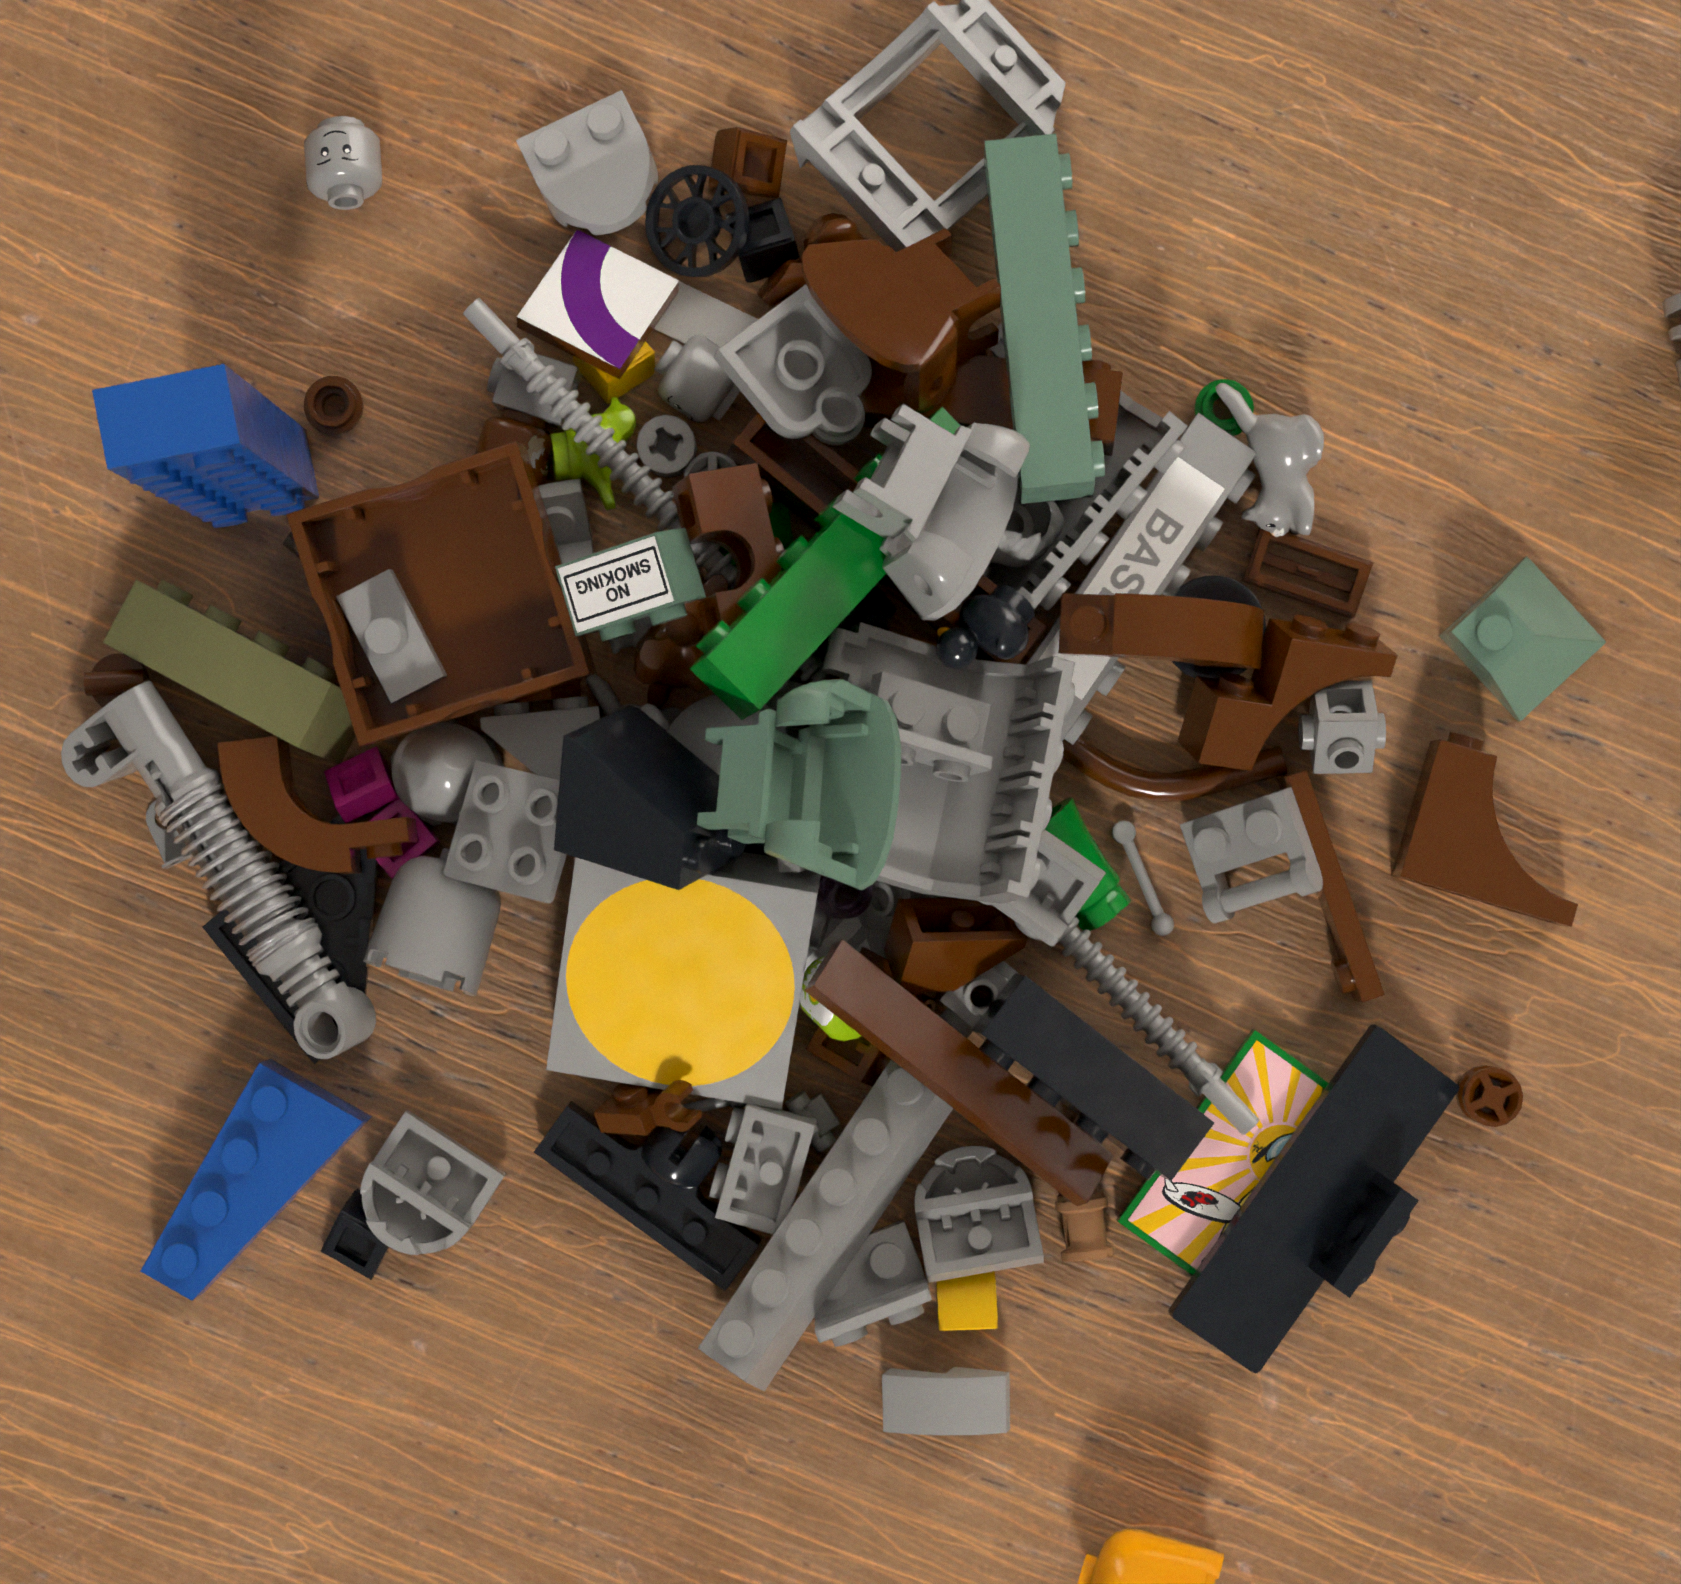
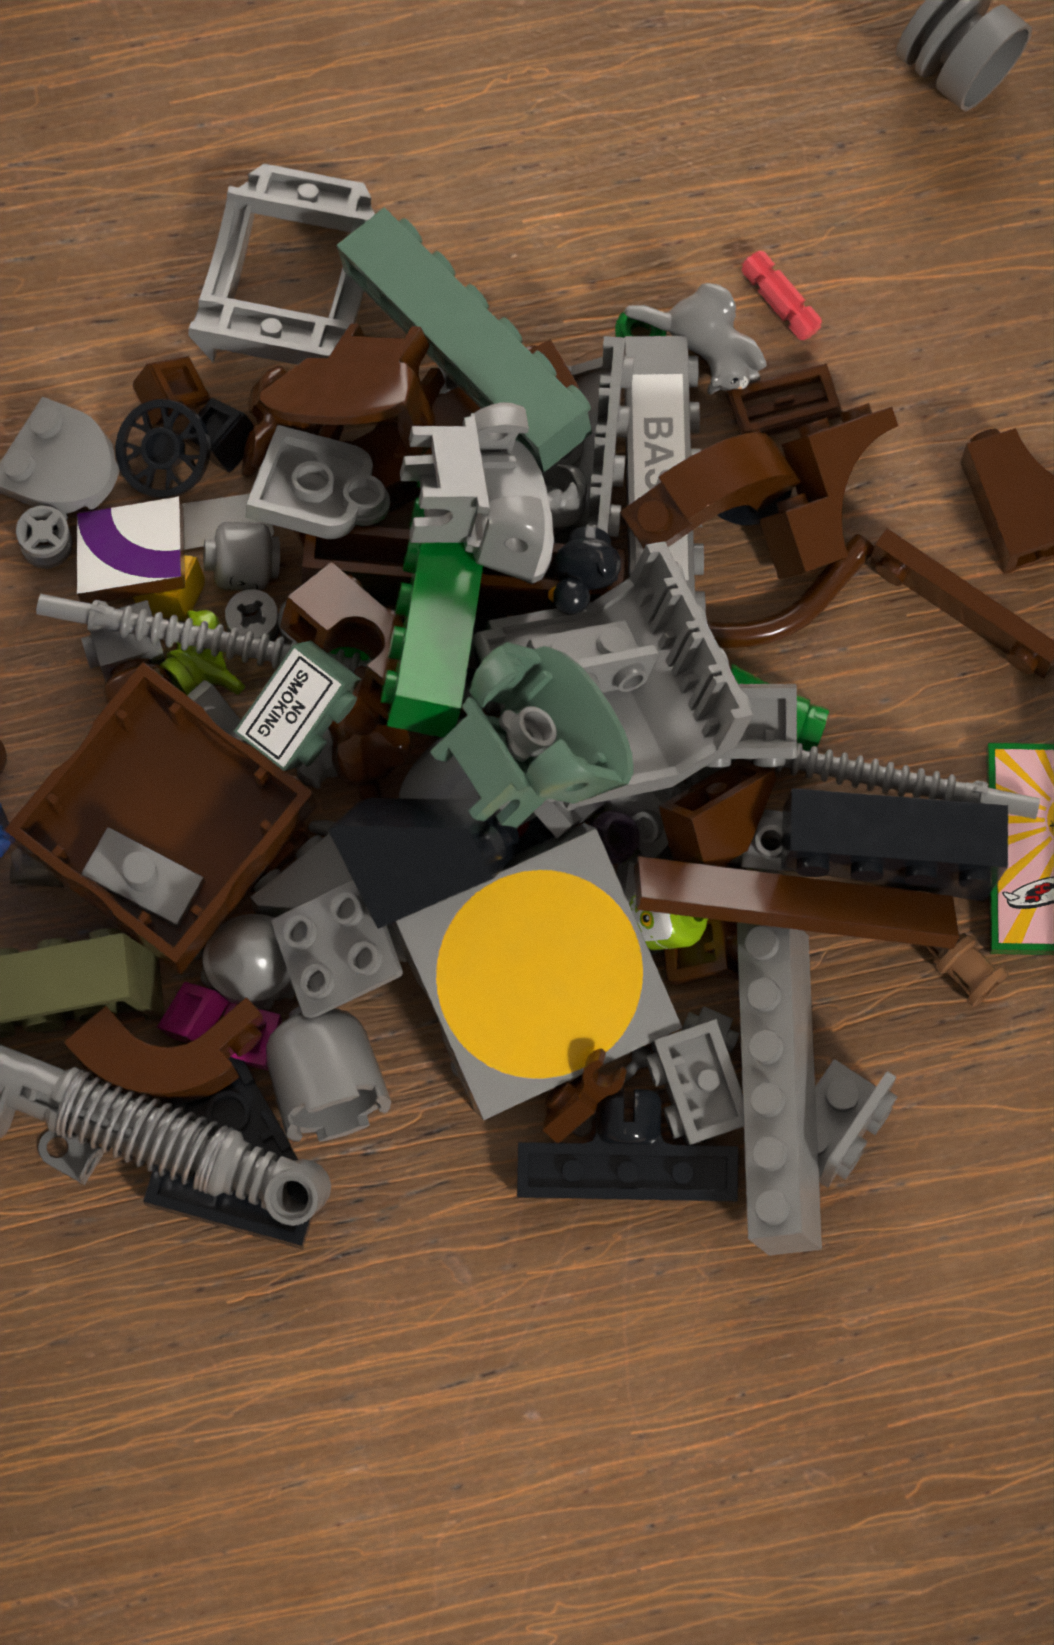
camera: 30 degrees left, 15 degrees down
(256, 1166) = (312, 1349): blue wedge -> none
(353, 1241) = (429, 1357): black slope -> none
(425, 1188) = (453, 1281): light grey slope -> none
(527, 220) = (38, 526): none -> light grey wheel
(818, 781) = (528, 732): none -> light grey plate
(946, 1403) = (964, 1169): light grey slope -> none
(967, 1303) = (923, 1084): yellow slope -> none
(975, 1215) = (884, 1015): light grey slope -> none
(1124, 833) = (788, 673): light grey hinge -> none
(1245, 836) = (877, 608): light grey plate -> none
(1346, 738) = (891, 485): light grey brick -> none
(1380, 464) = (781, 295): none -> coral axle
(1522, 639) = (972, 348): sand green slope -> none

